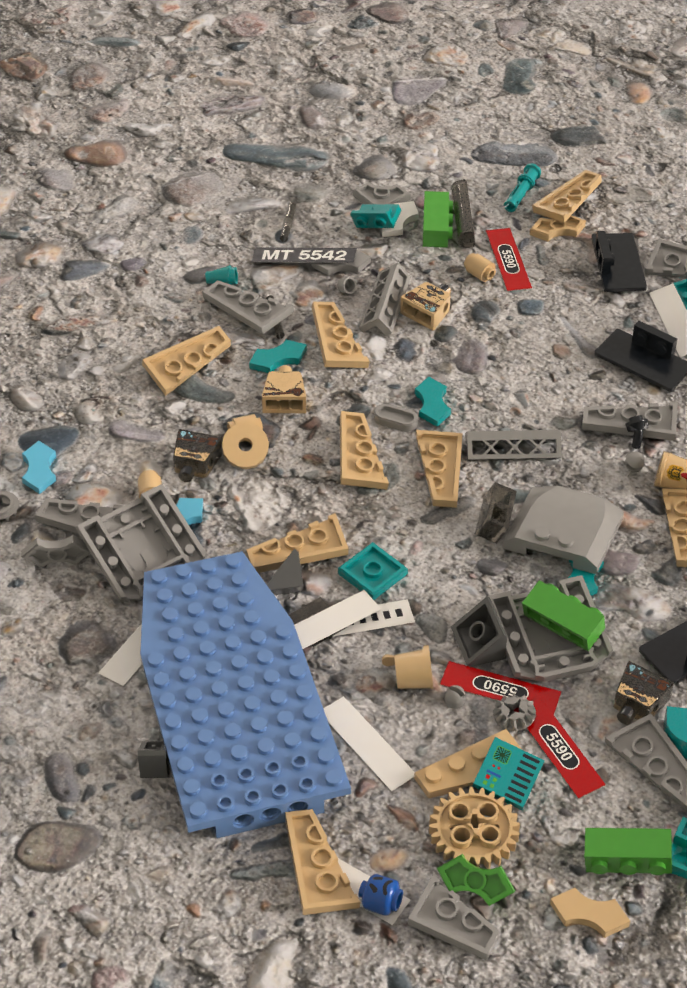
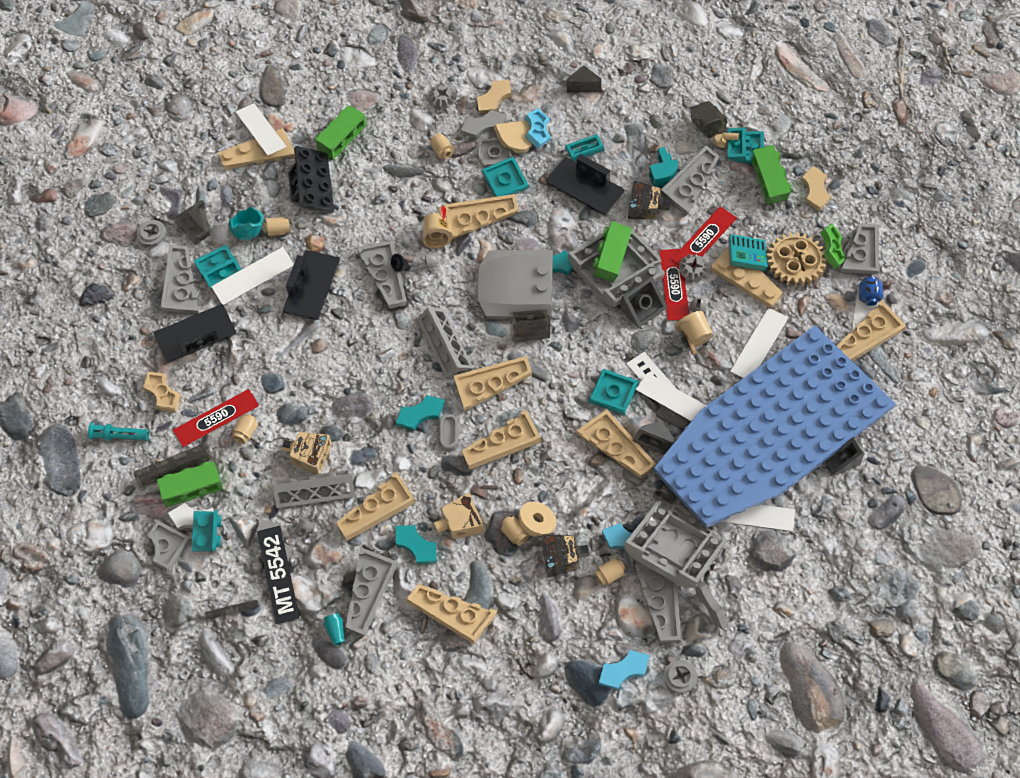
camera: 110 degrees left, 15 degrees up
(568, 197) = (127, 393): tan wing -> none

